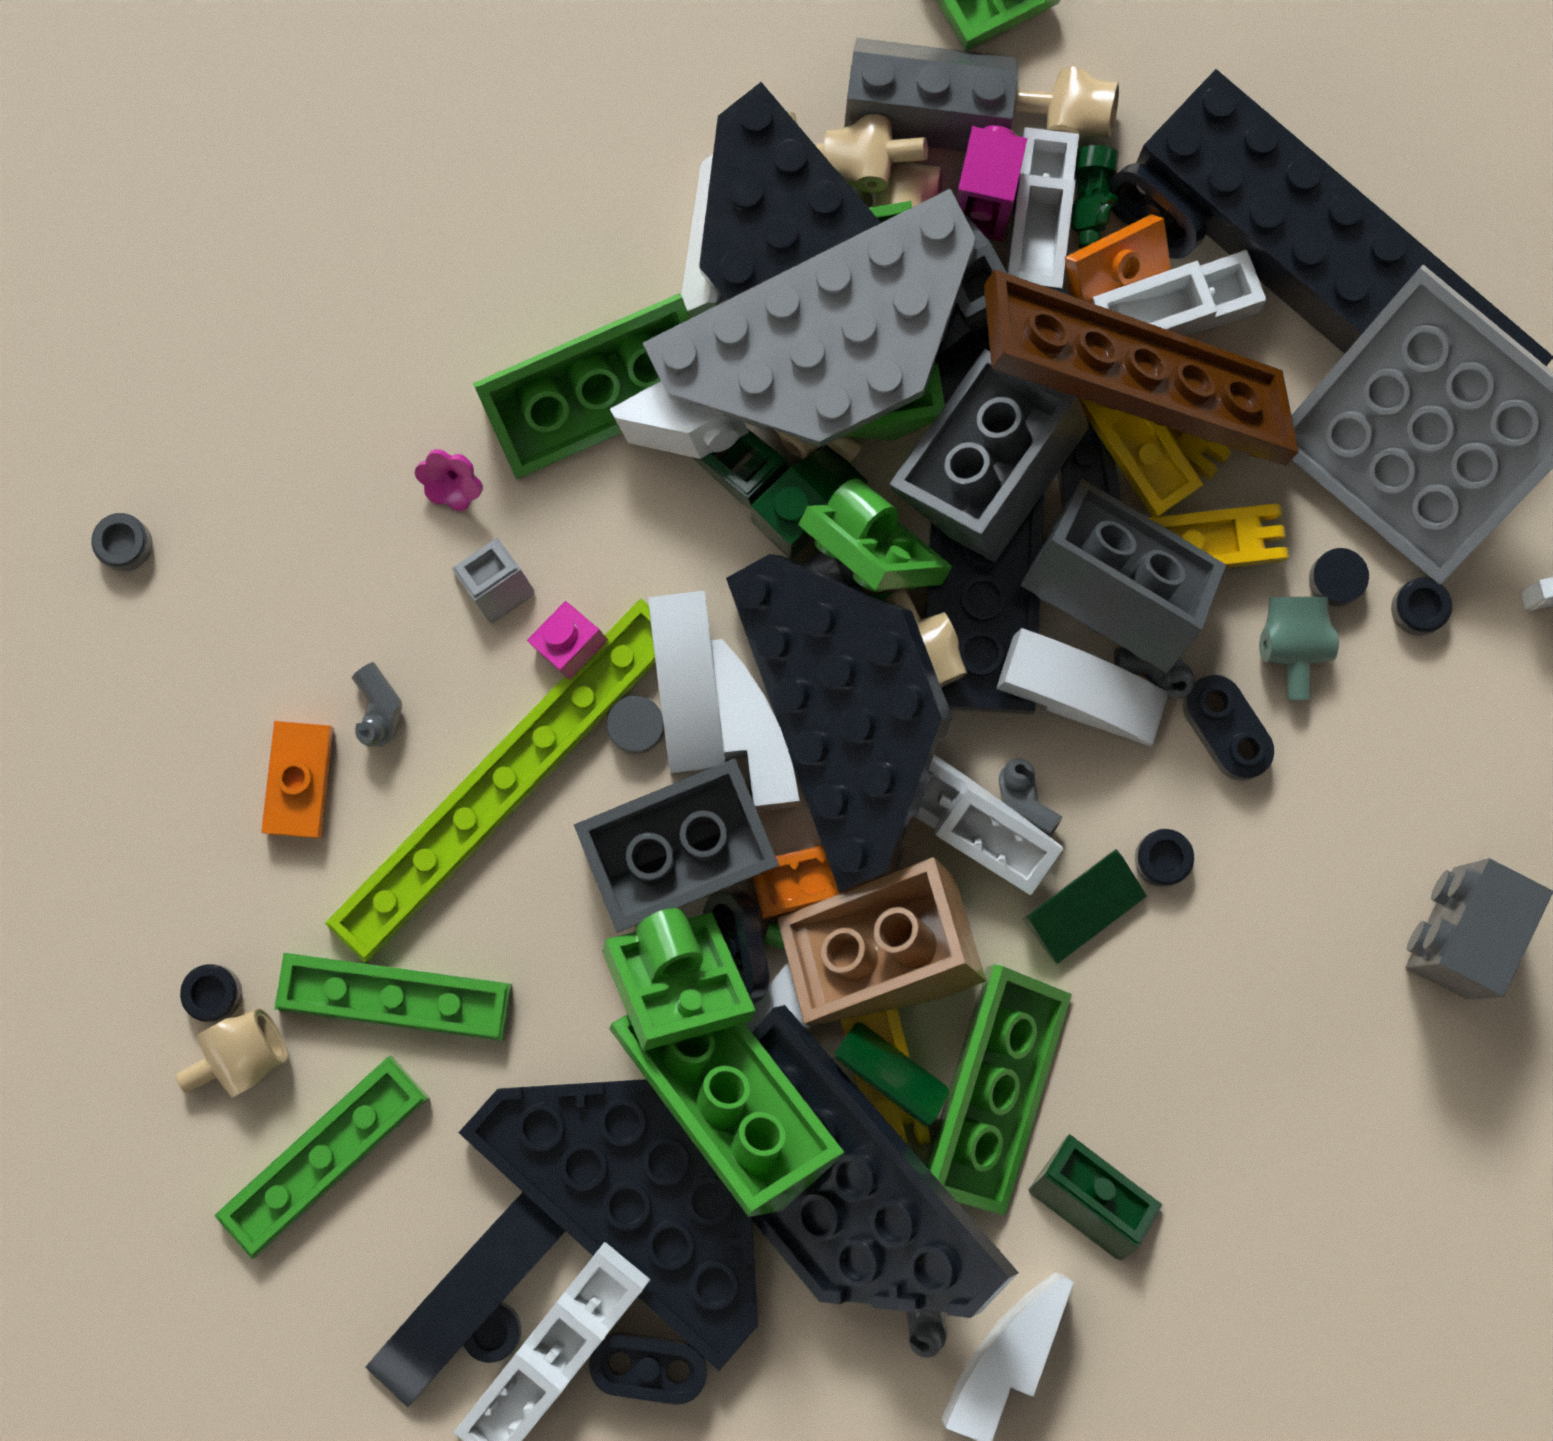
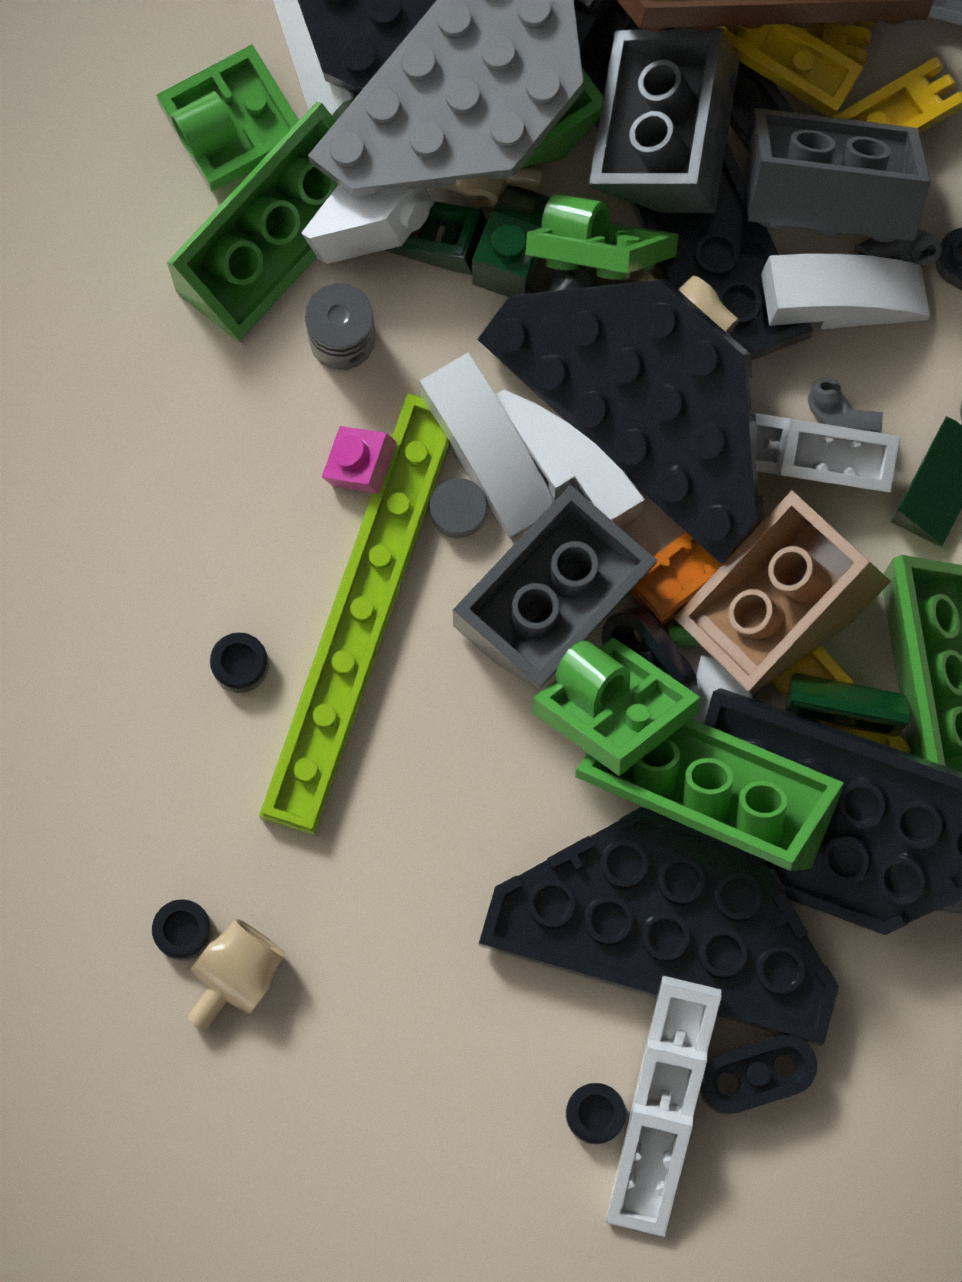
camera: 25 degrees left, 5 degrees down
(297, 780) = (169, 699): orange plate -> none
(321, 1157) = (359, 1030): bright green tile -> none
(375, 775) = (239, 662): none -> black tile
(382, 709) = (217, 599): dark grey arm -> none
(393, 996) = (354, 853): bright green tile -> none
(448, 479) = (180, 366): dark pink plant -> none
(464, 1299) = (557, 1095): black slope -> none
(494, 580) = (264, 439): light grey slope -> none
(603, 265) = (228, 116): none -> bright green plate
(607, 509) = (340, 326): none -> dark grey piece

